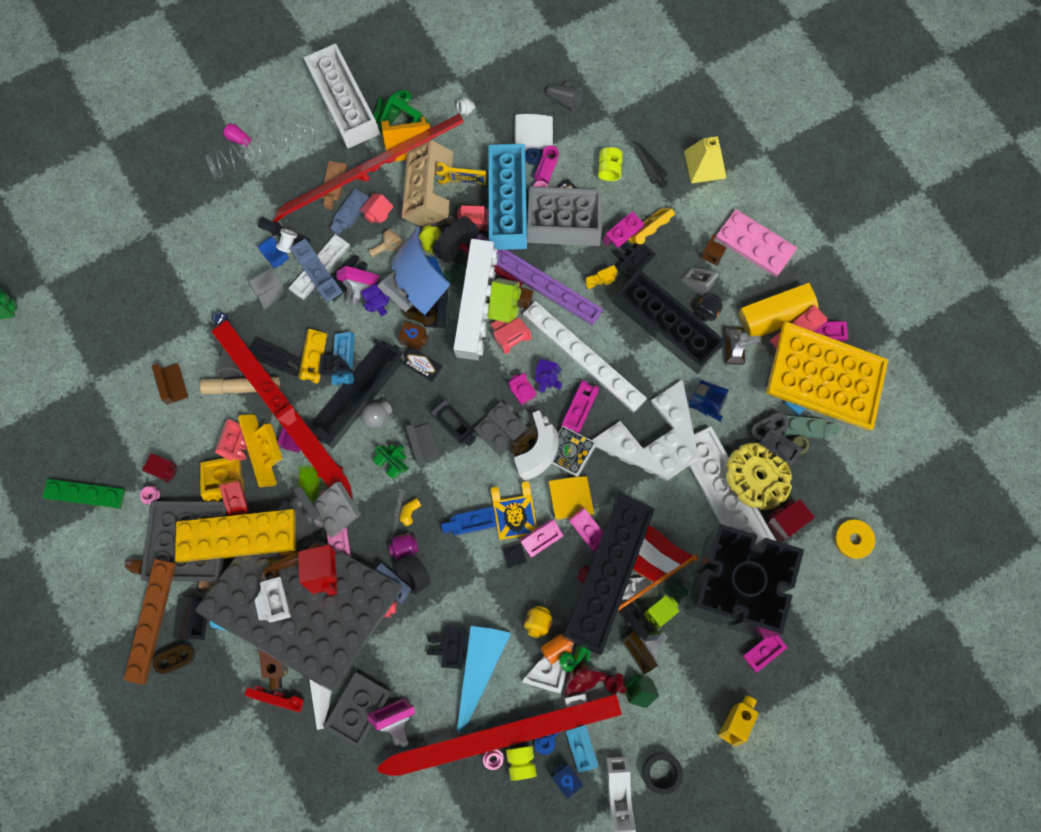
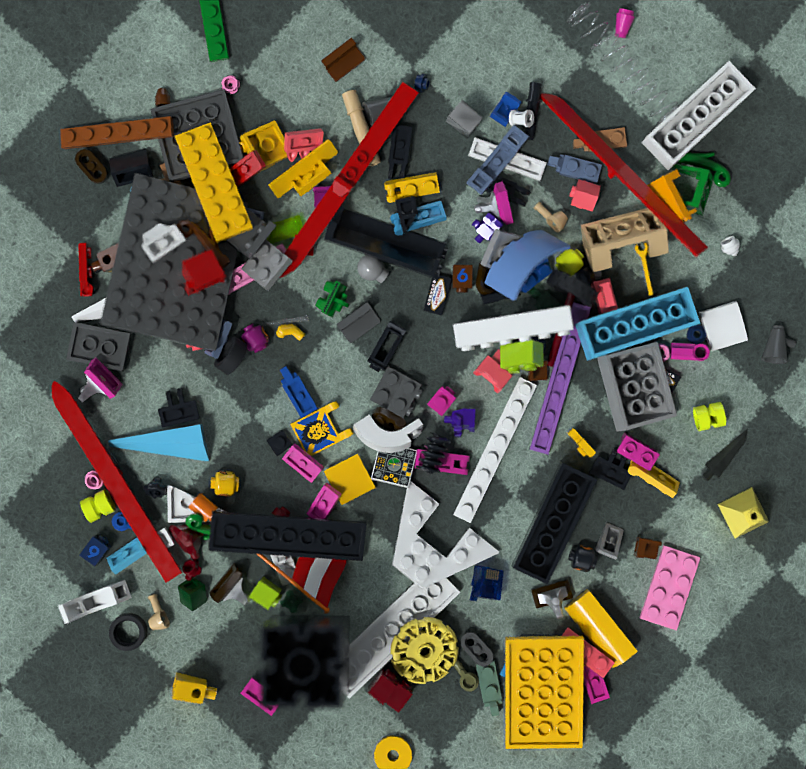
camera: 70 degrees right, 15 degrees up
(160, 468) = (257, 84): dark red brick -> none
(522, 695) = (155, 488): none -> black piece
(570, 407) = (433, 454): none -> black piece
(639, 623) = (250, 576): black plate -> none
(659, 738) = (155, 621): none -> tan bar
(780, 446) = (458, 663): black plate -> none

